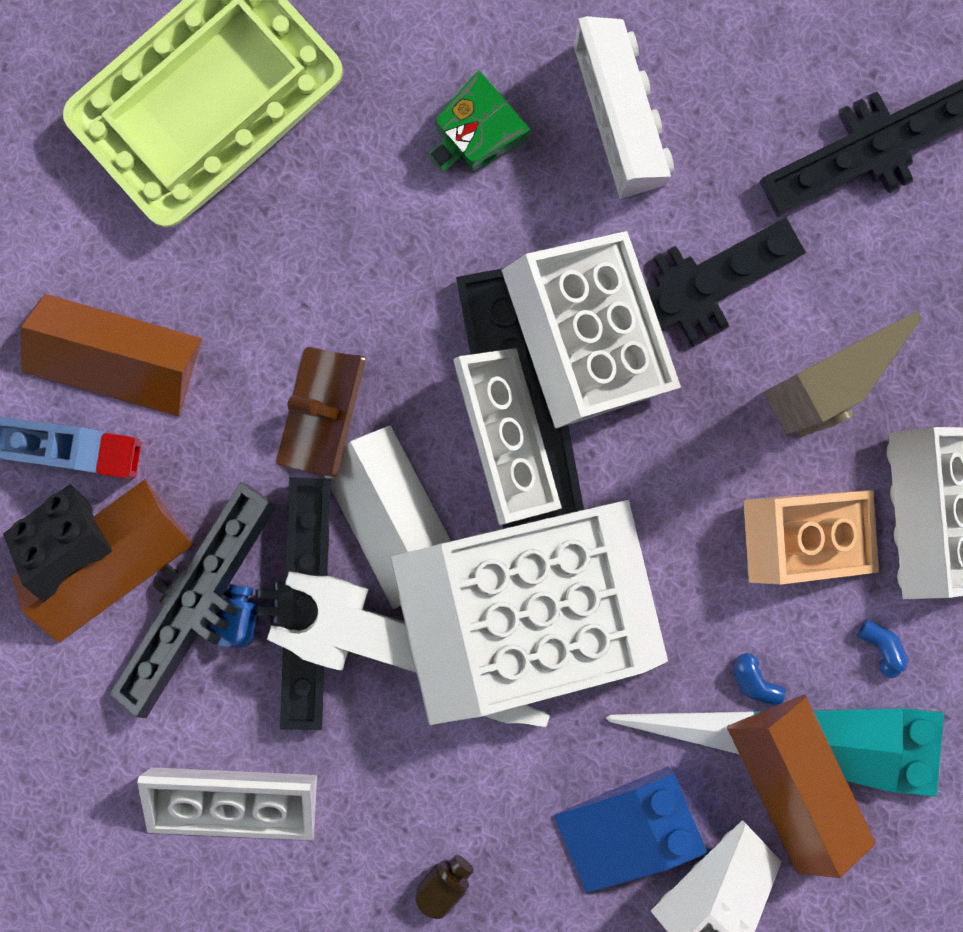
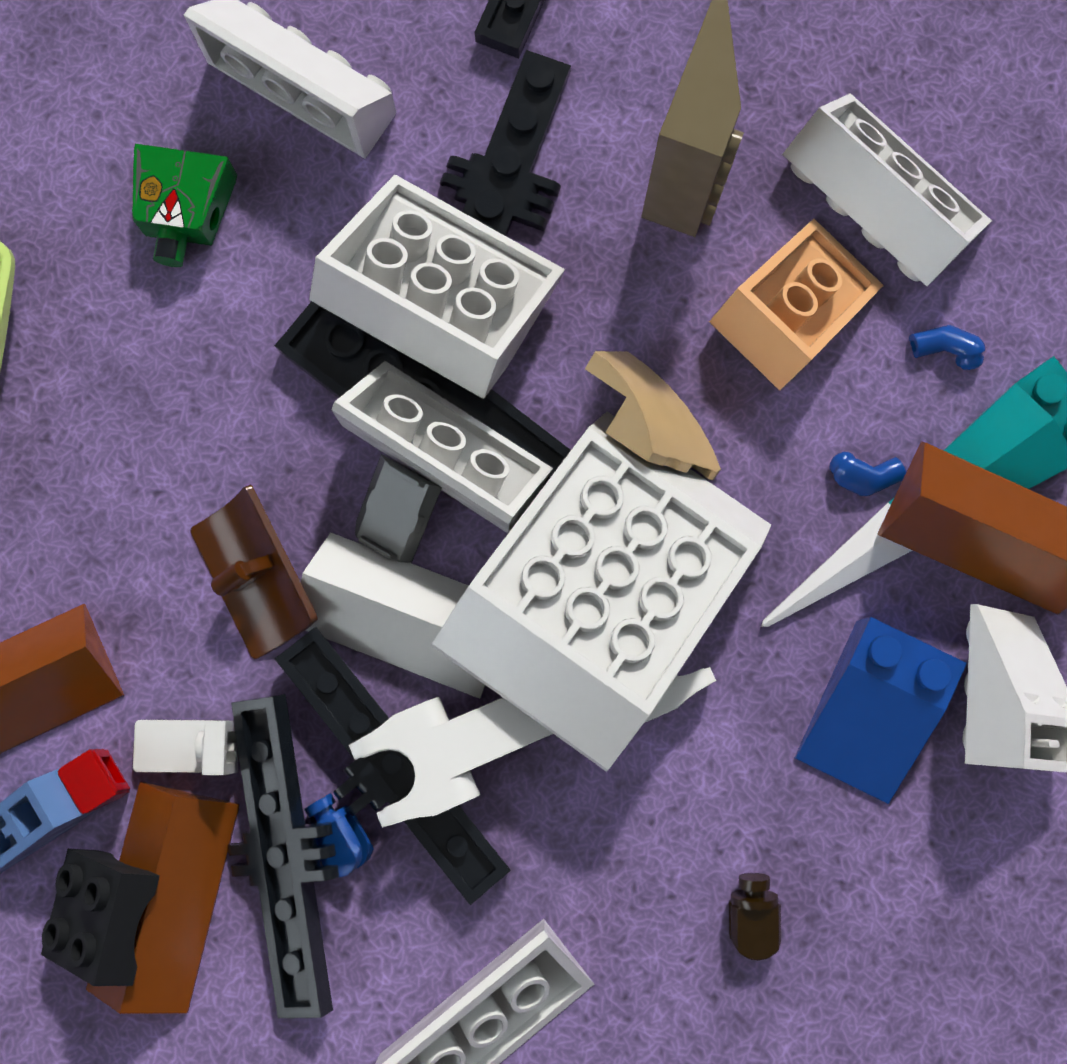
camera: 40 degrees left, 5 degrees down
(191, 483) = (185, 746): none -> white bracket
(441, 448) = (395, 510): none -> dark grey piece
(652, 537) = (653, 417): none -> tan slope

